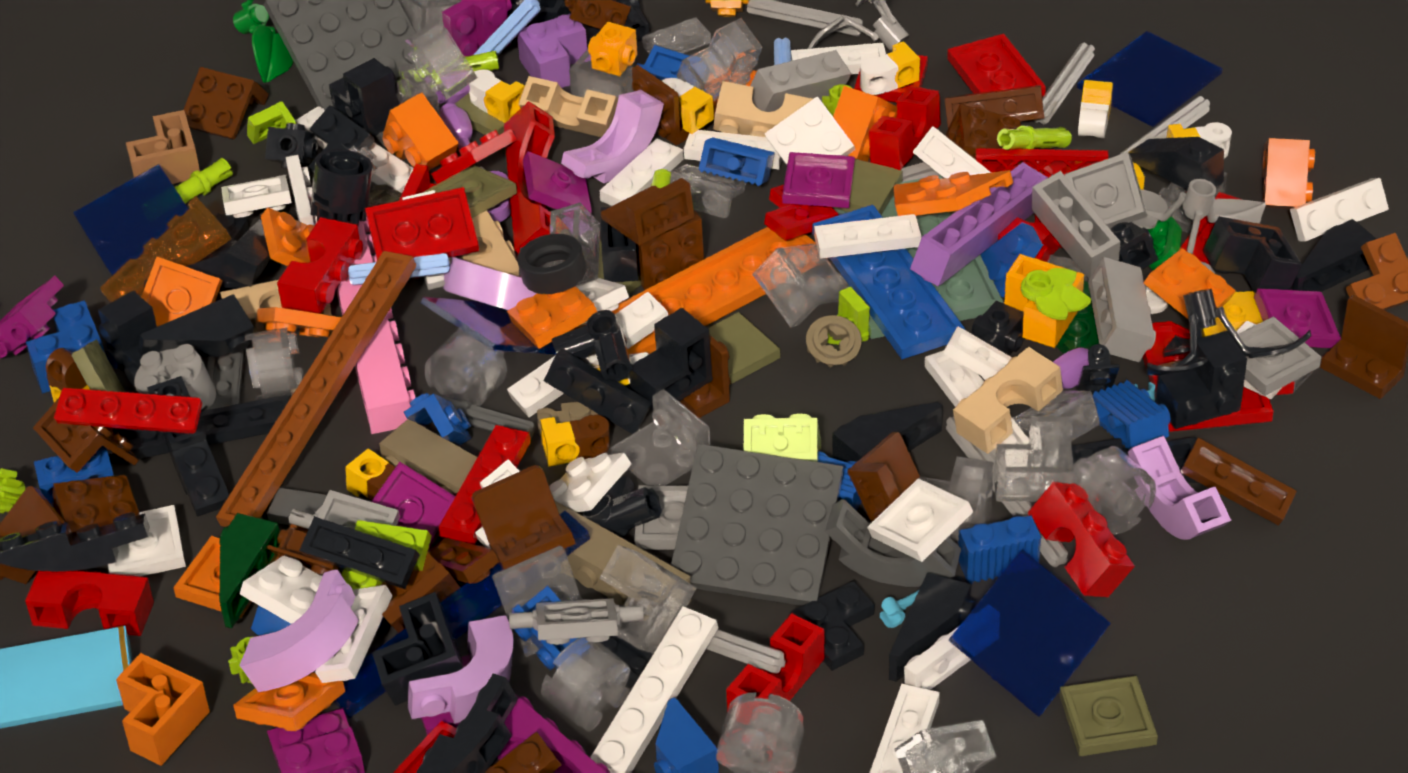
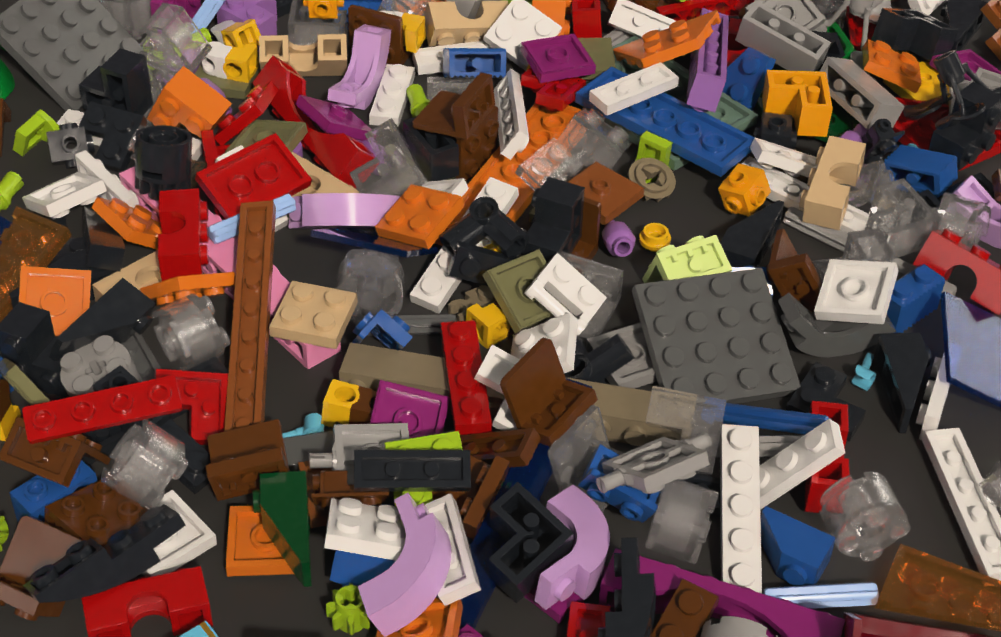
camera: 30 degrees left, 0 degrees up
(152, 473) = (145, 464): none -> clear brick
(243, 491) = (243, 455): none -> reddish brown bracket
(244, 424) = (205, 399): none -> red plate
(333, 484) = (312, 425): none -> medium azure hand
(390, 381) = (313, 314): none -> tan plate
(519, 66) = (237, 33): none -> yellow leg
(554, 278) = (407, 187): black tyre -> none
(605, 419) = (508, 287): none -> olive tile
(648, 430) = (569, 289): none -> white plate
(727, 666) = (800, 461): none -> white plate
(730, 231) = (511, 115): none -> white plate
(730, 297) = (550, 161): none -> clear bracket
(741, 617) = (772, 418): none -> blue axle
(749, 393) = (618, 238): none -> medium lavender plant
(766, 340) = (609, 189): none -> dark orange plate
(792, 402) = (654, 236): none -> yellow plate
(915, 380) = (744, 190): none -> light orange brick
(1054, 292) = (815, 87): lime plate -> none

